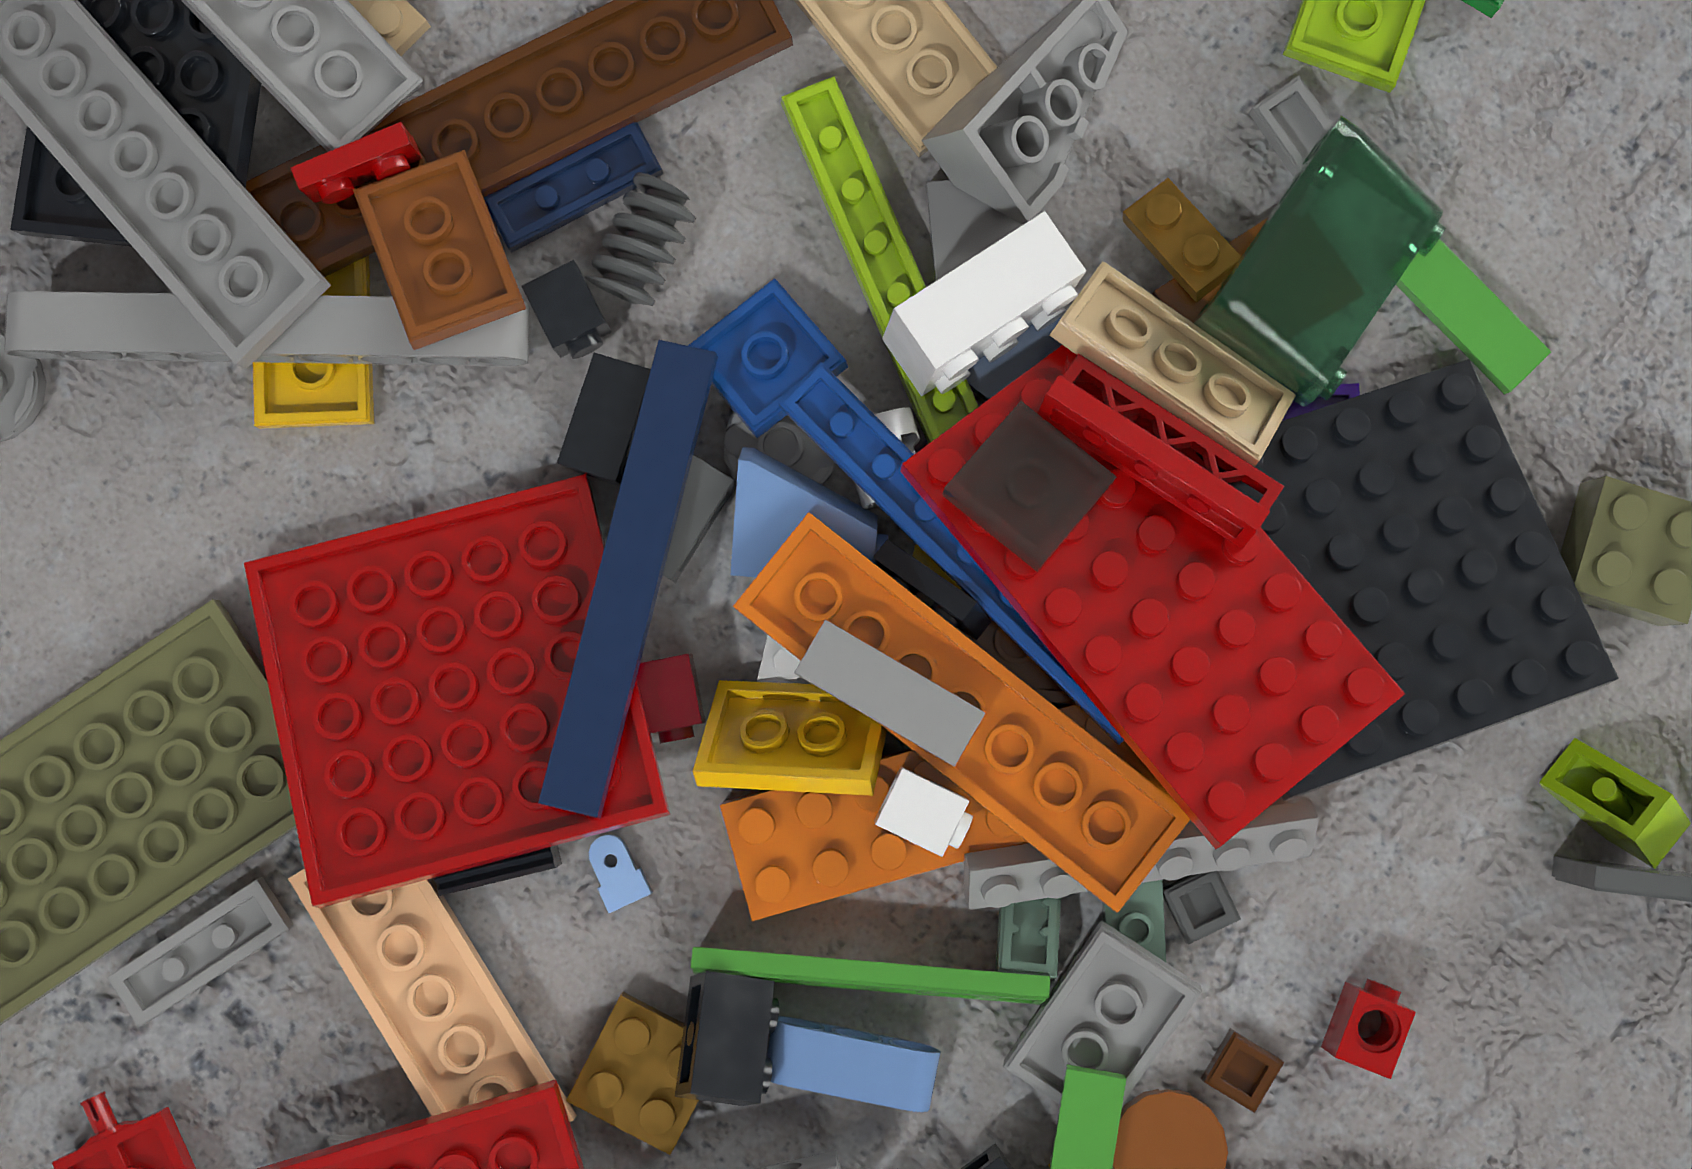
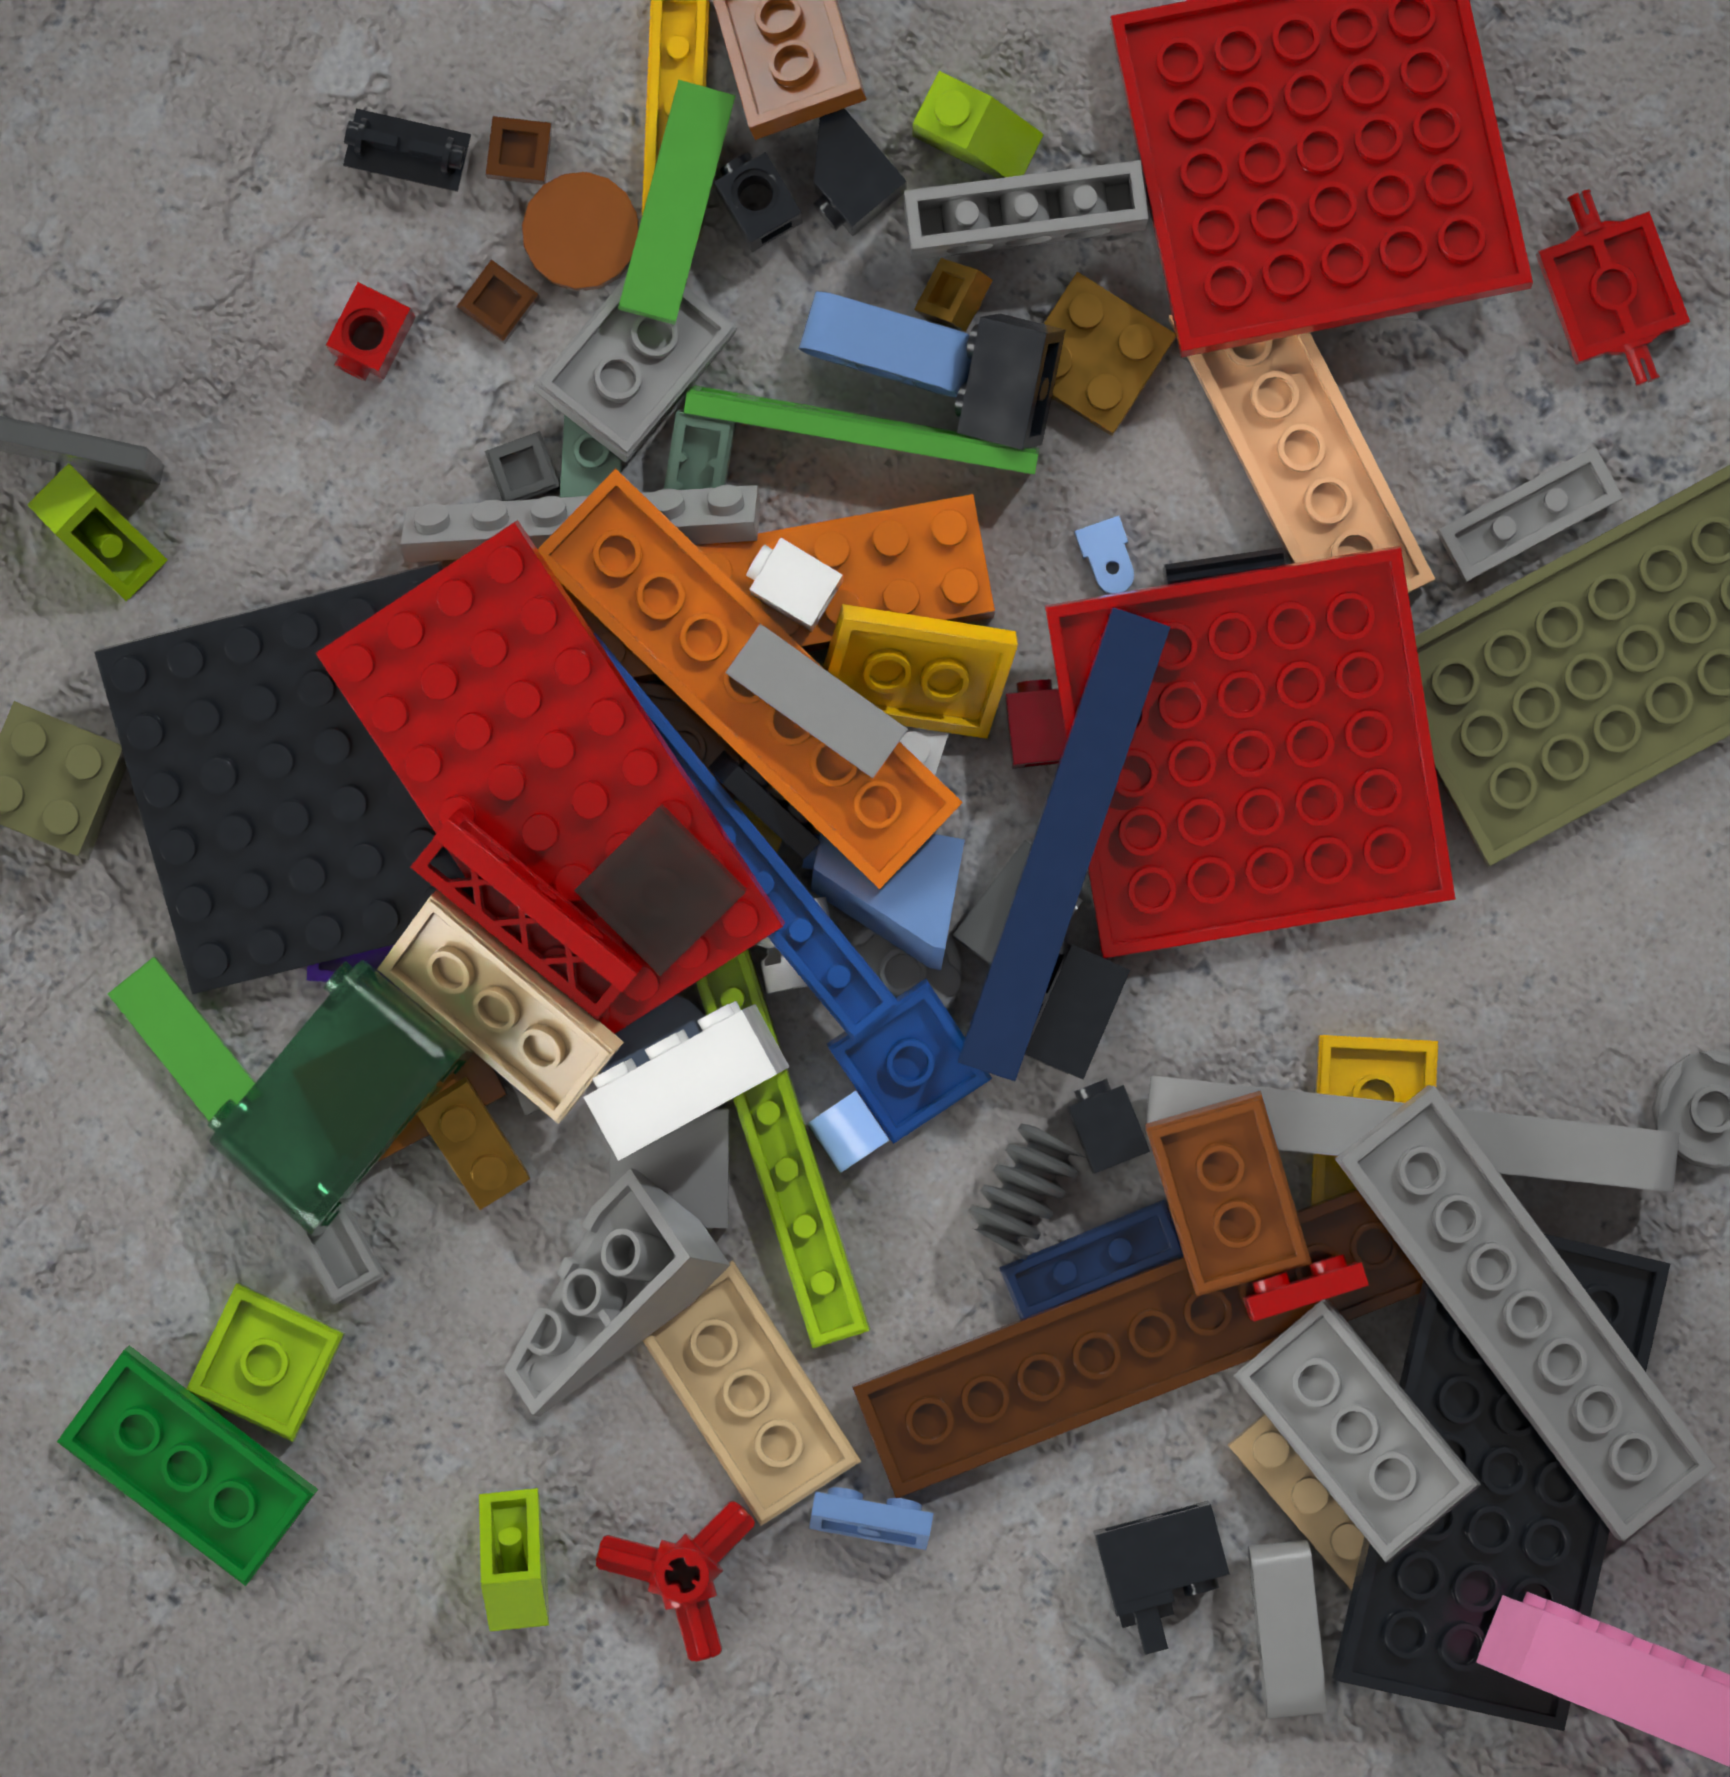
camera: 165 degrees left, 0 degrees up
(791, 1120) = (953, 294): none -> pearl gold plate
(817, 284) = (848, 1131): none -> light blue brick

